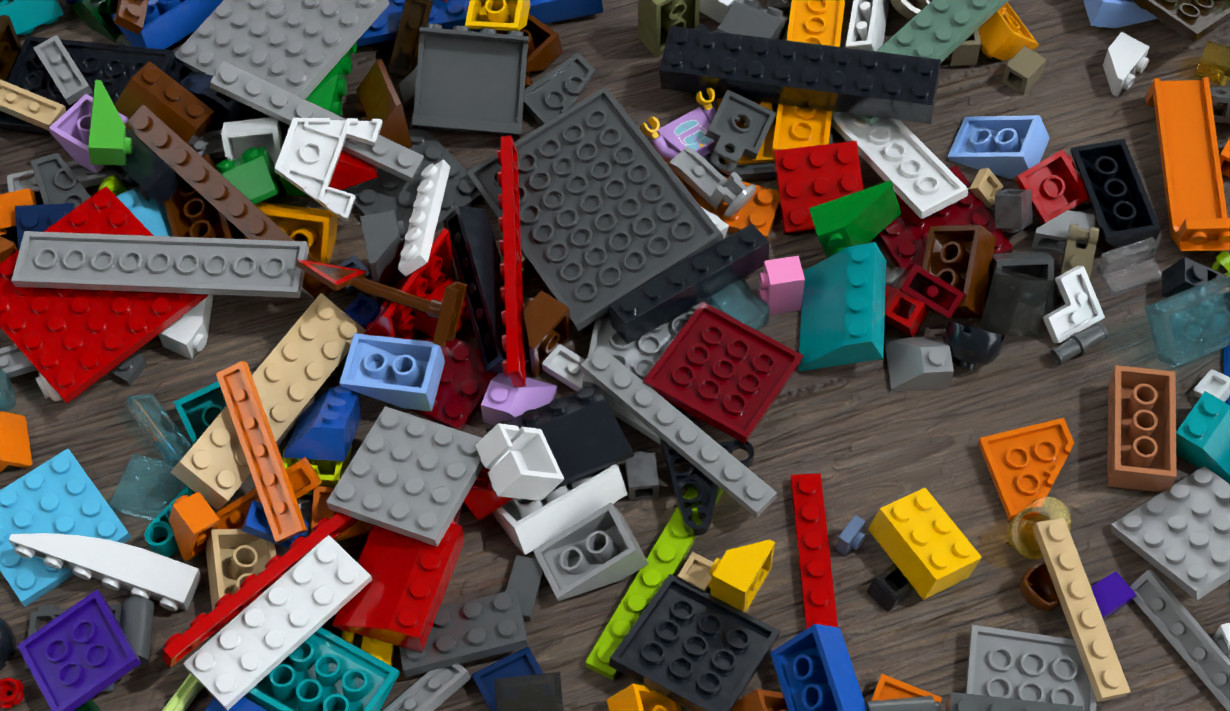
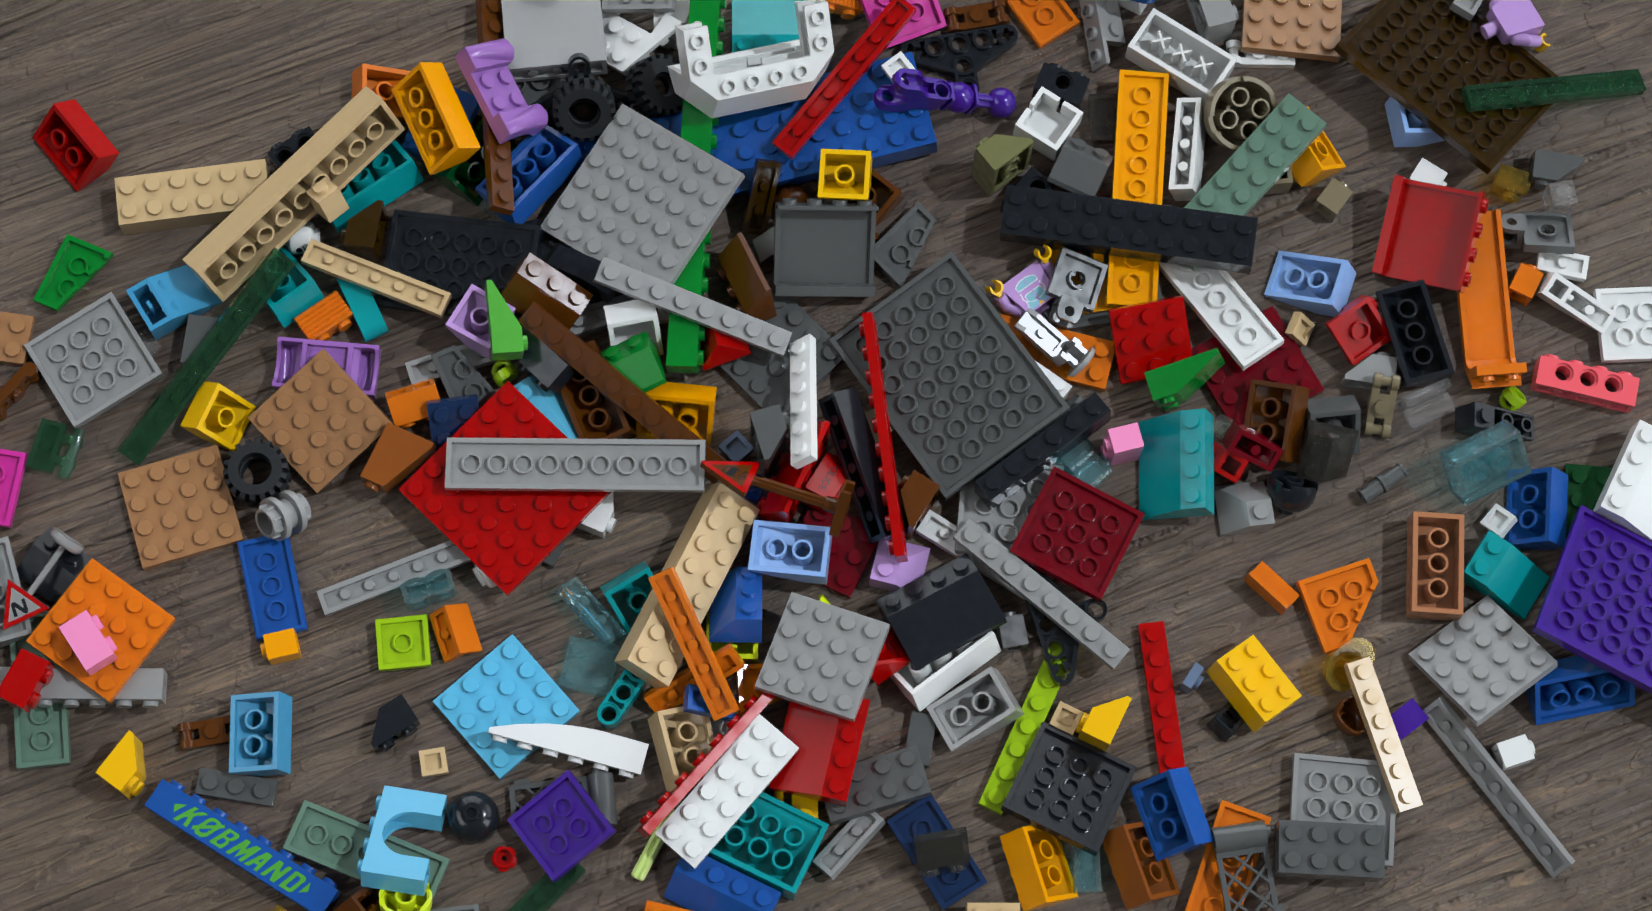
camera: 10 degrees left, 15 degrees up
(62, 69) = (440, 252): light grey plate -> none
(192, 523) = (639, 705): orange slope -> none
(313, 153) = (695, 344): white wing -> none
(519, 462) = (915, 643): white piece -> none
(948, 446) = (1271, 587): none -> orange panel
(1013, 209) = (1324, 355): flat silver brick -> none
(1080, 306) = (1383, 449): white plate -> none
(1131, 97) = (1430, 234): none -> red panel

